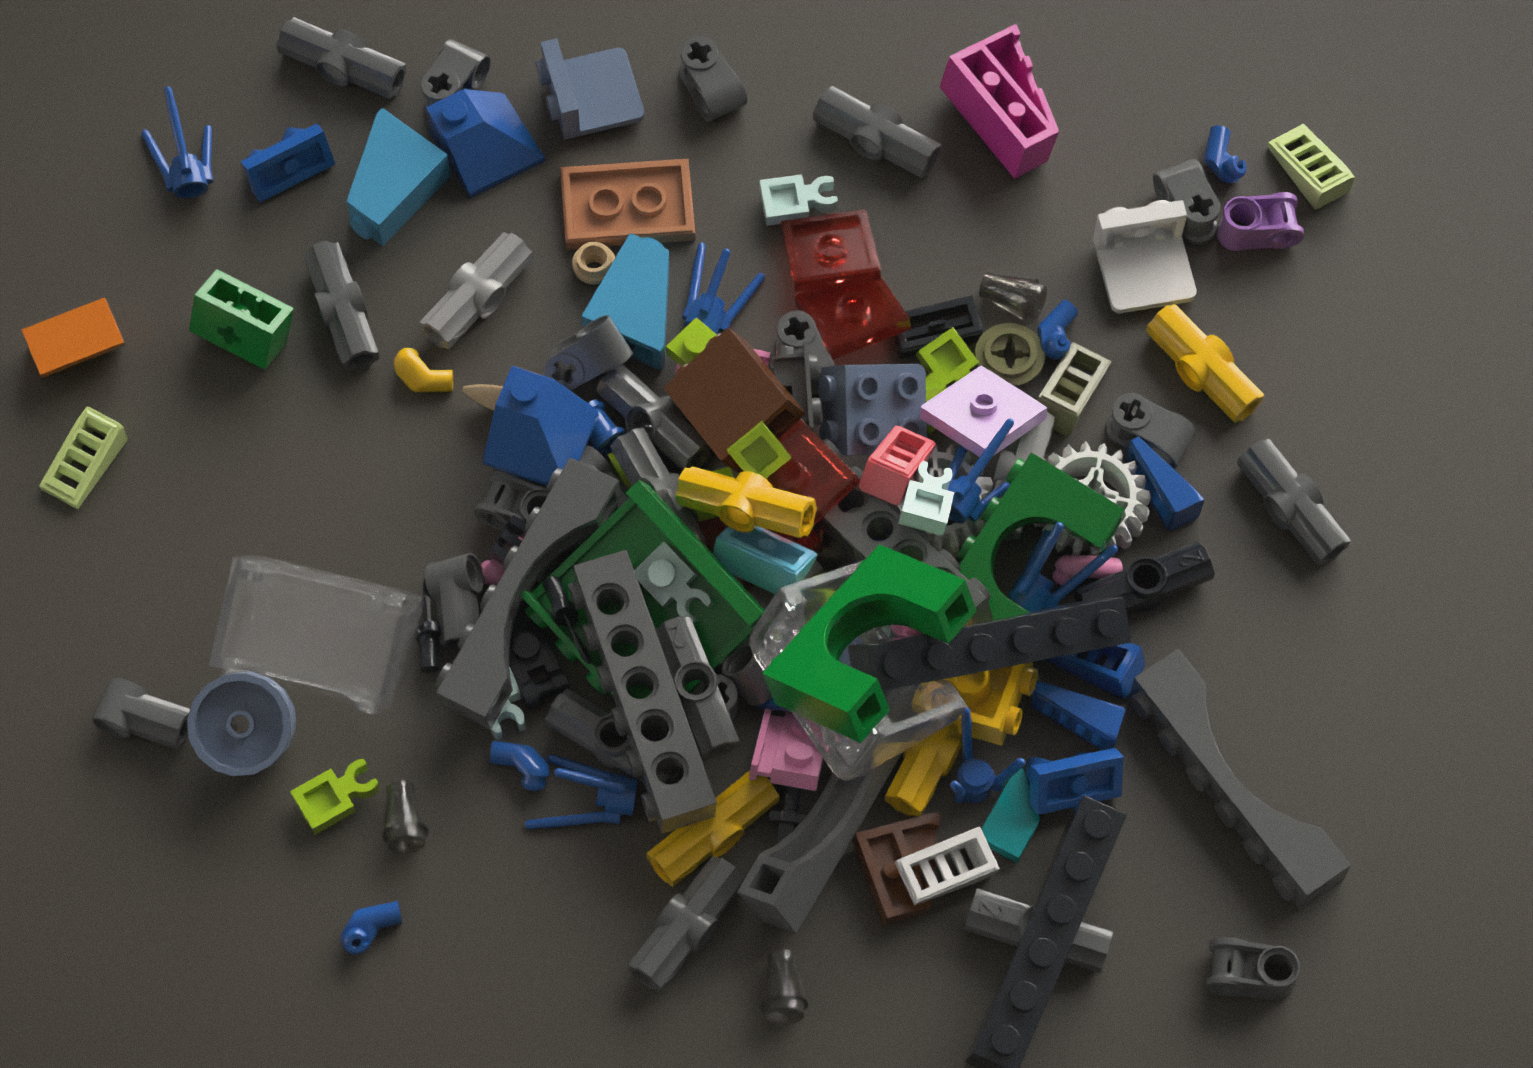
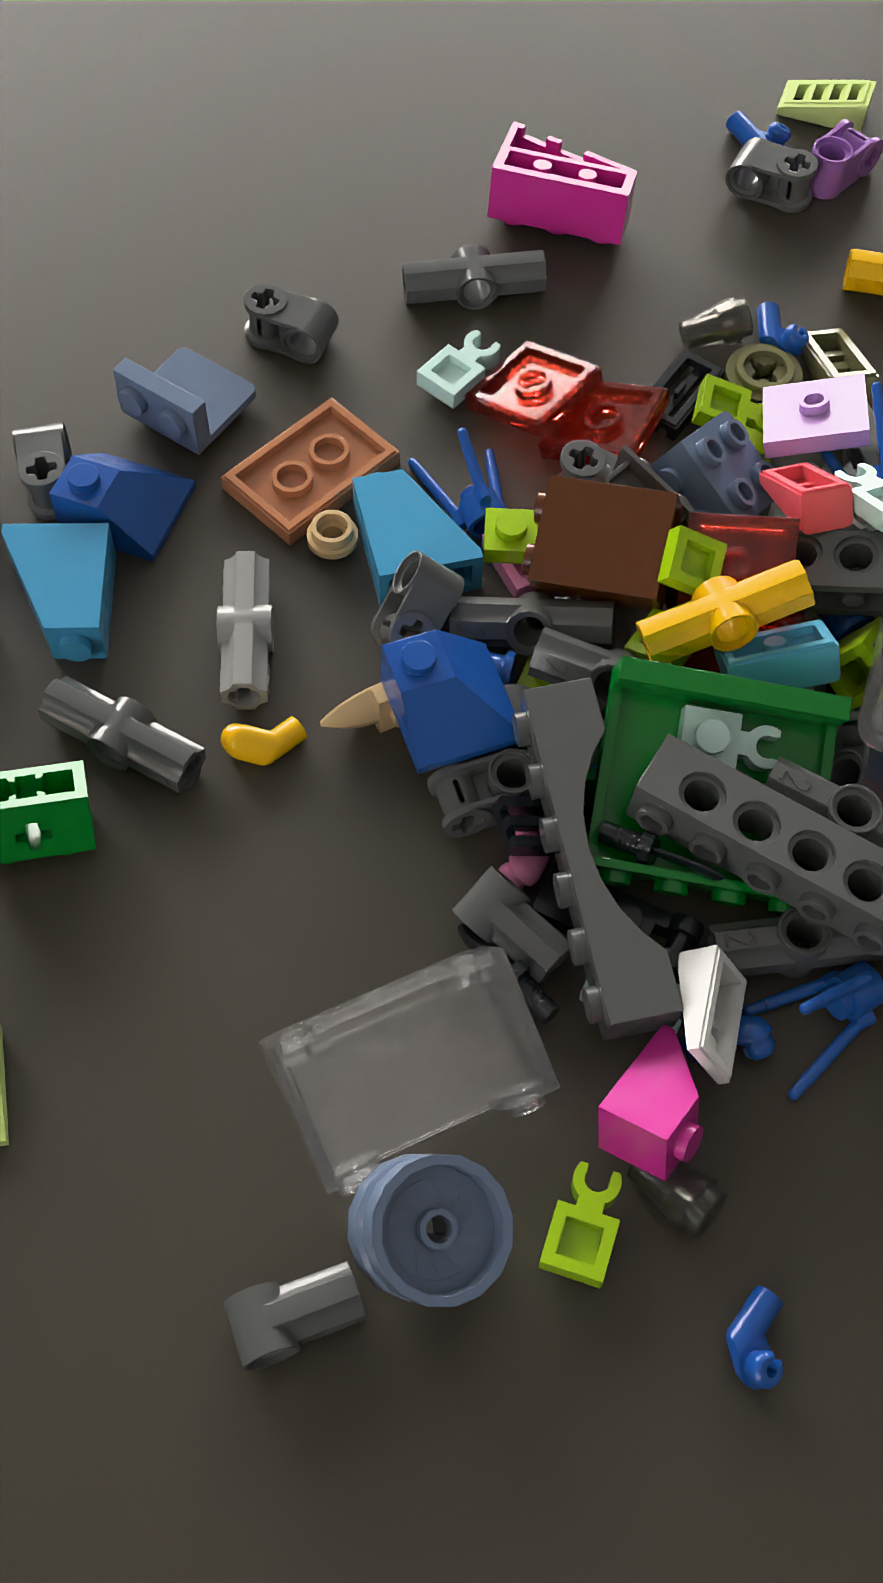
camera: 40 degrees left, 5 degrees down
(427, 759) = (653, 1110): none -> dark pink slope
(536, 732) = (712, 1008): none -> white slope
(1144, 256) = (783, 237): white bracket -> none

